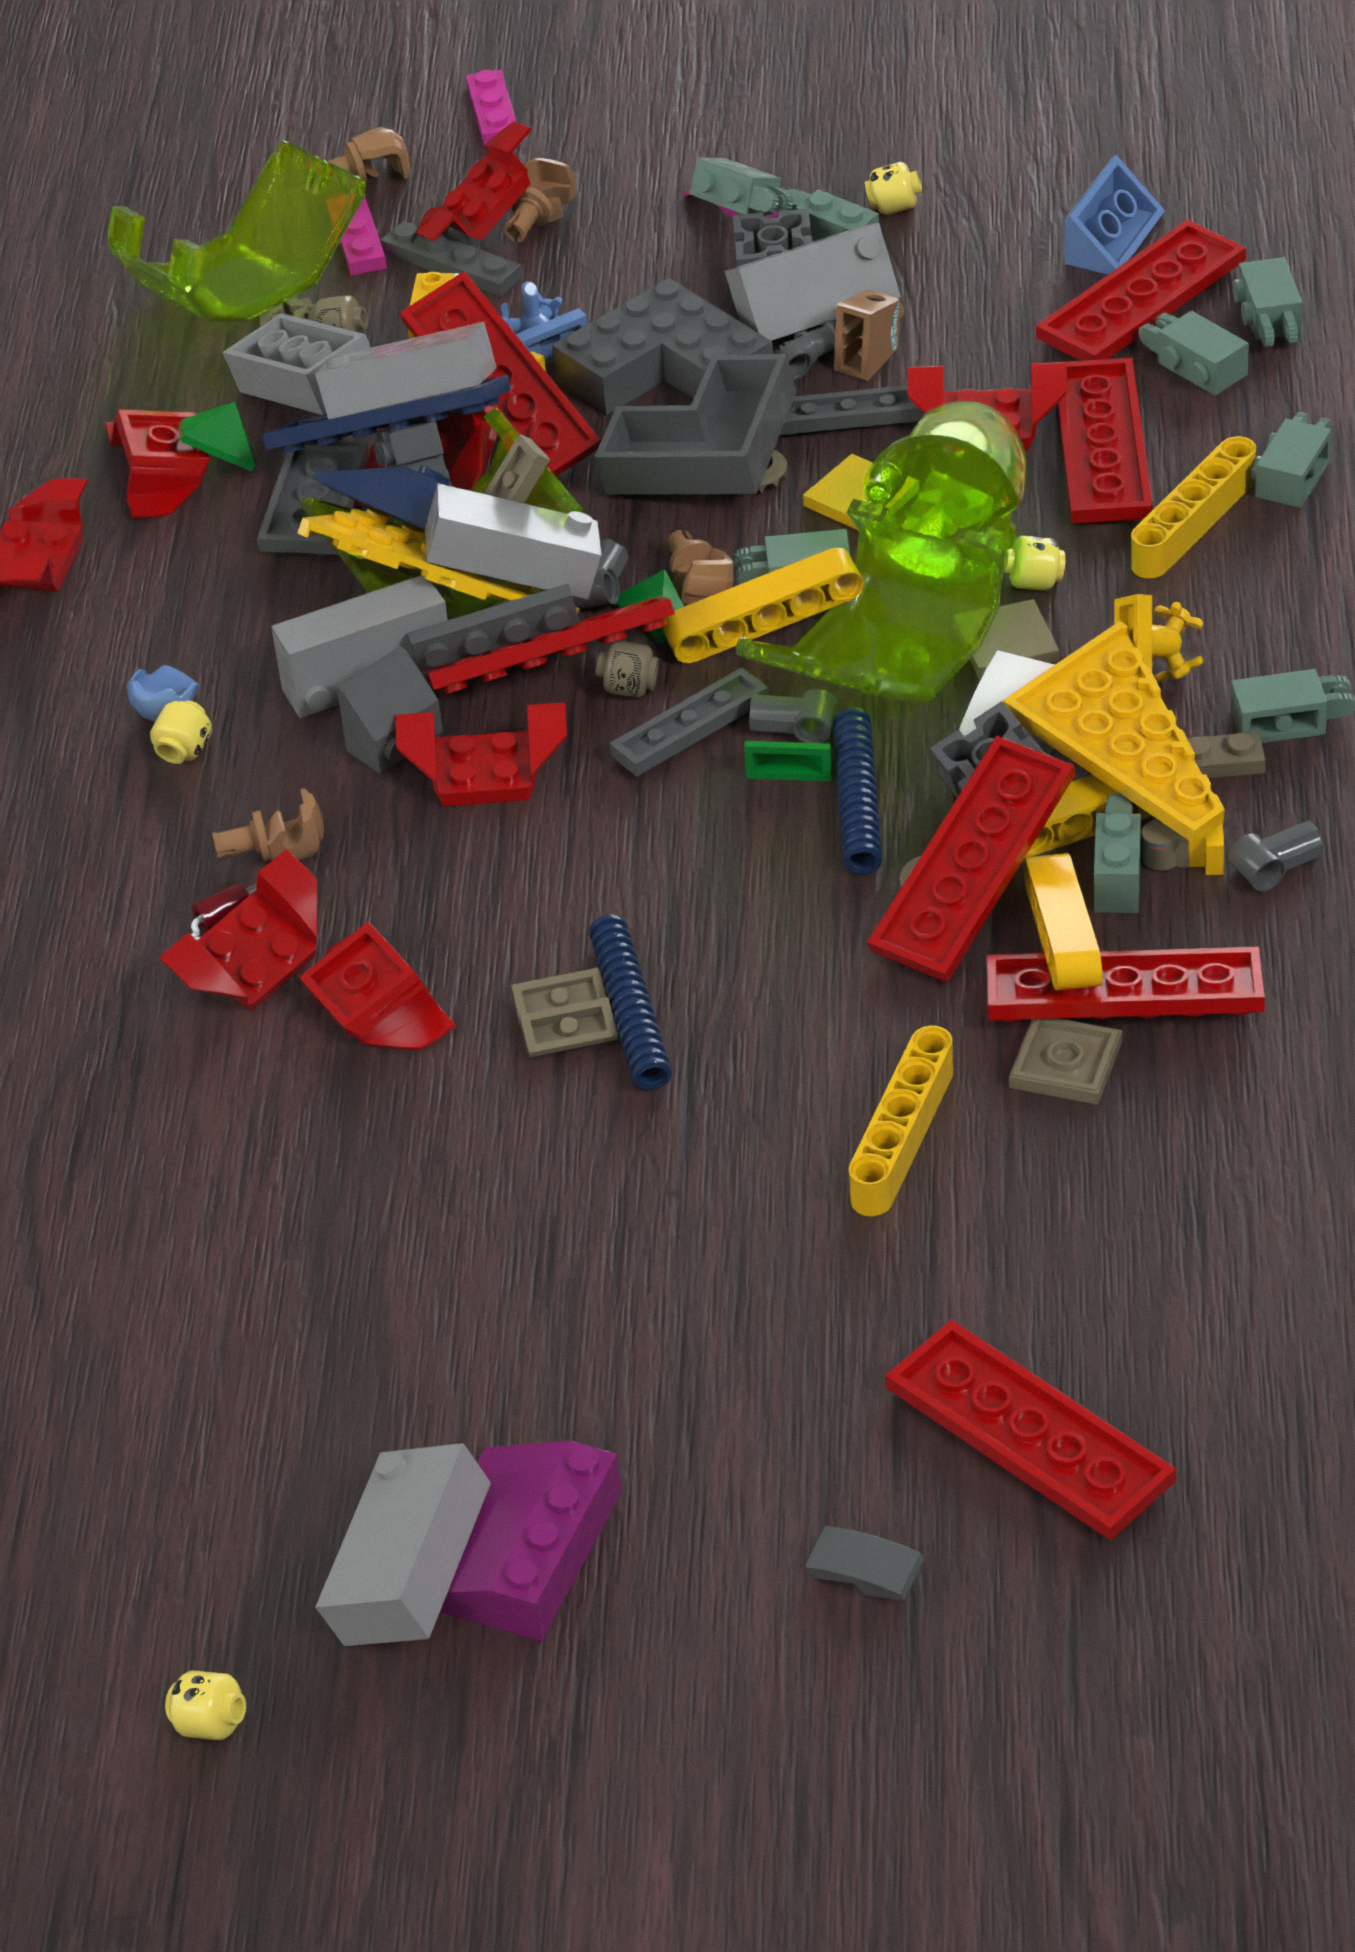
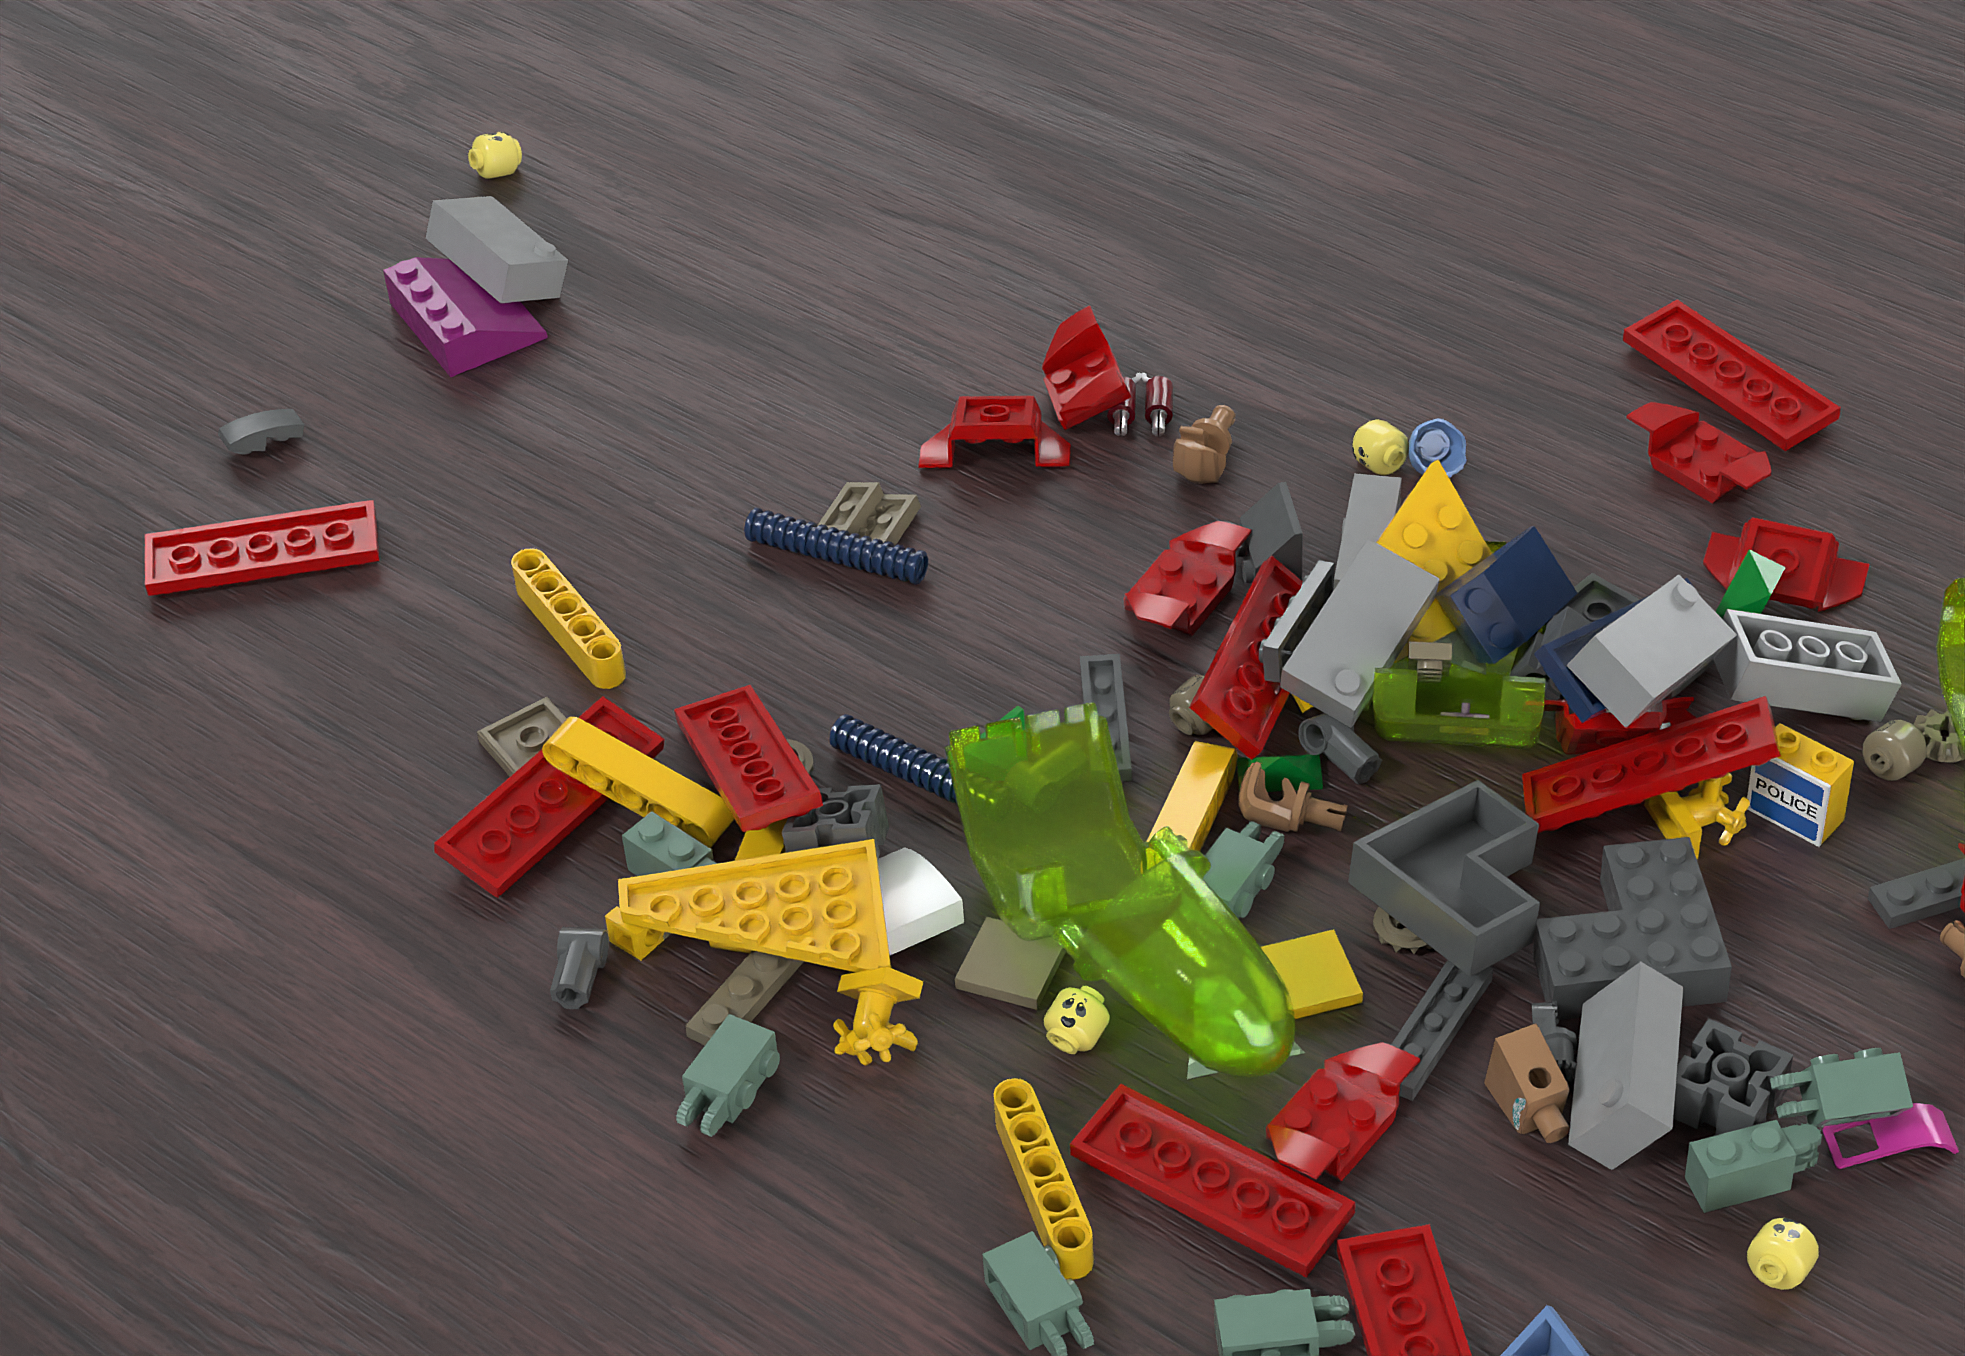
camera: 125 degrees right, 0 degrees up
(540, 324) = (1746, 874): medium blue piece -> none

